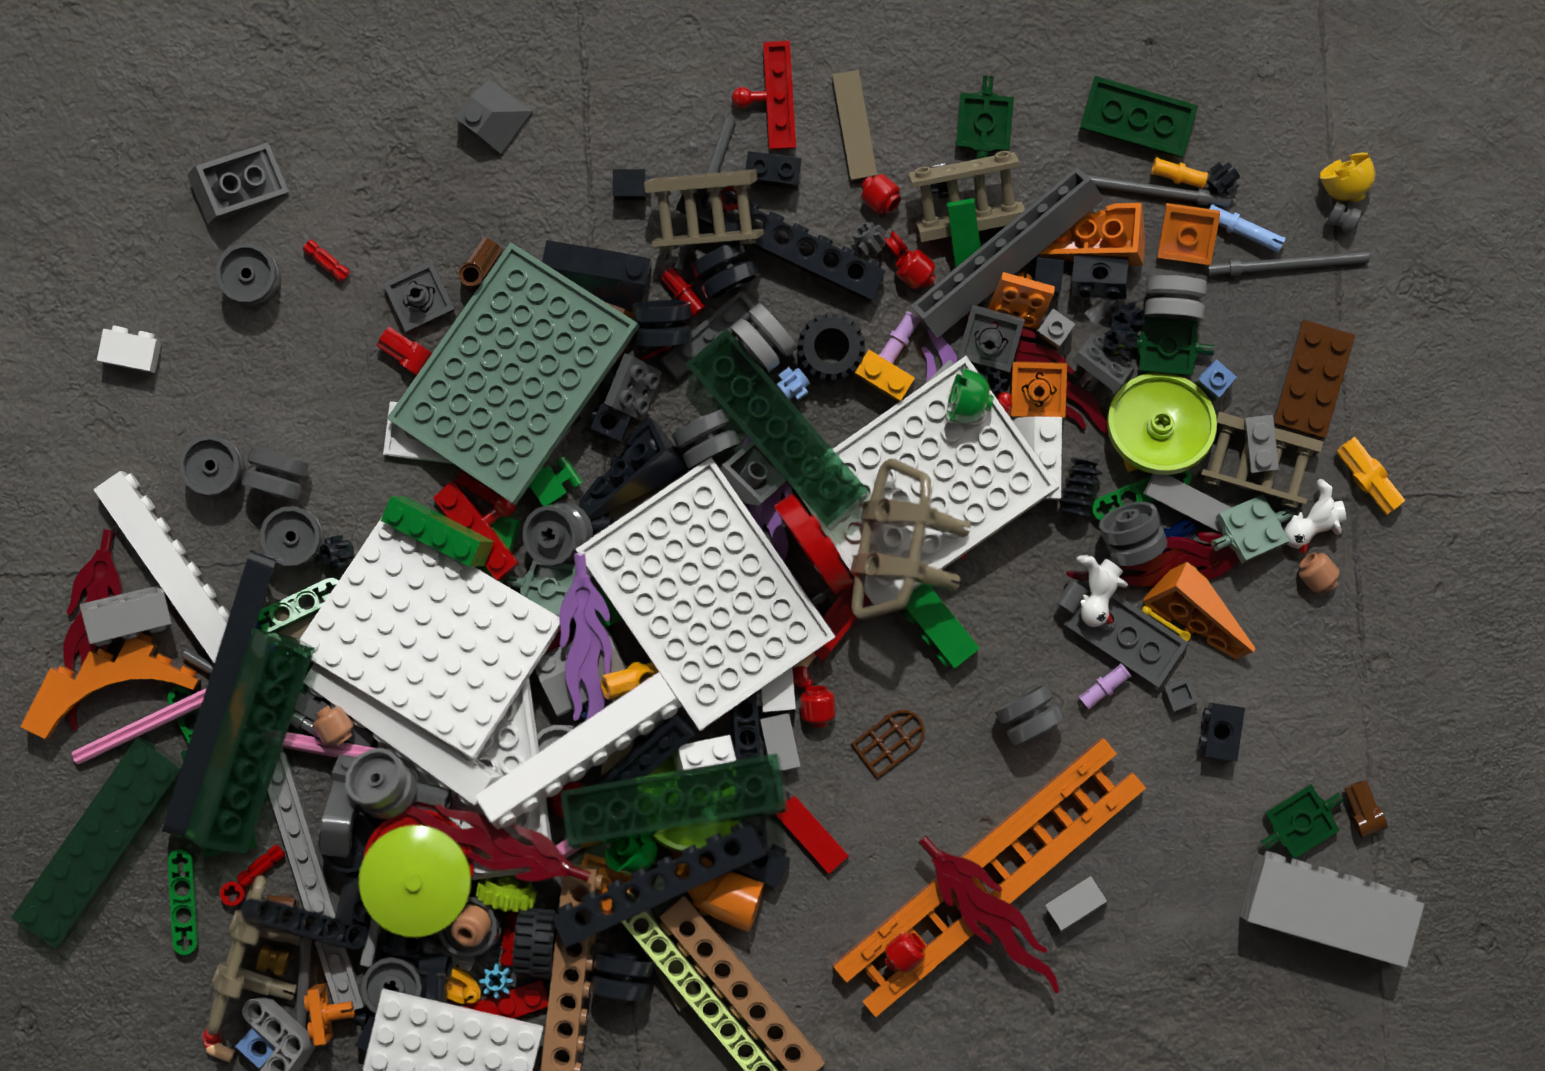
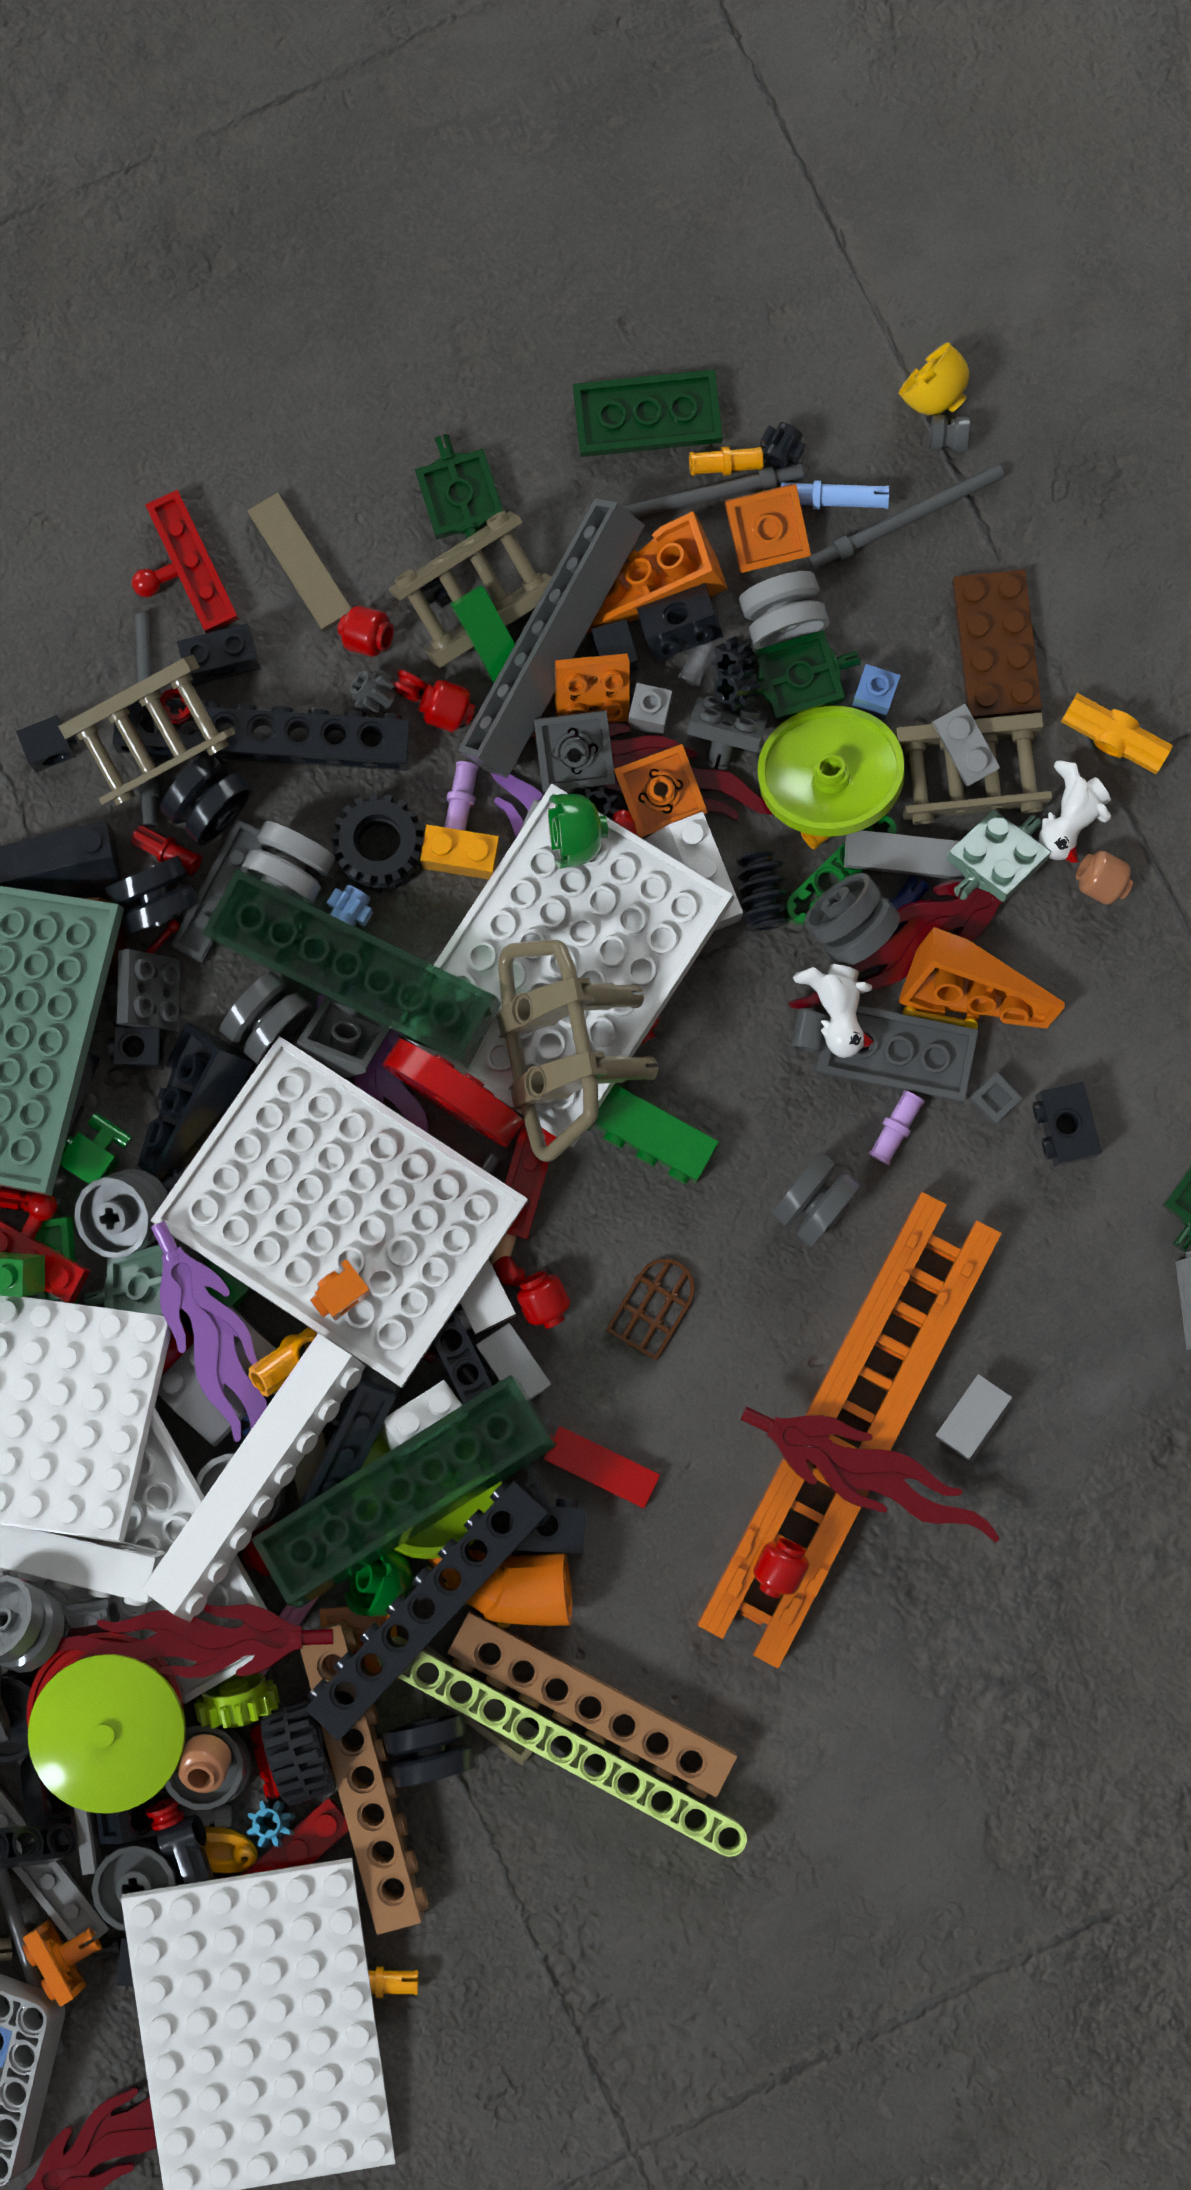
camera: 20 degrees left, 5 degrees down
(430, 947) = (165, 1814): none -> red bush
(683, 650) = (340, 1292): none -> orange brick

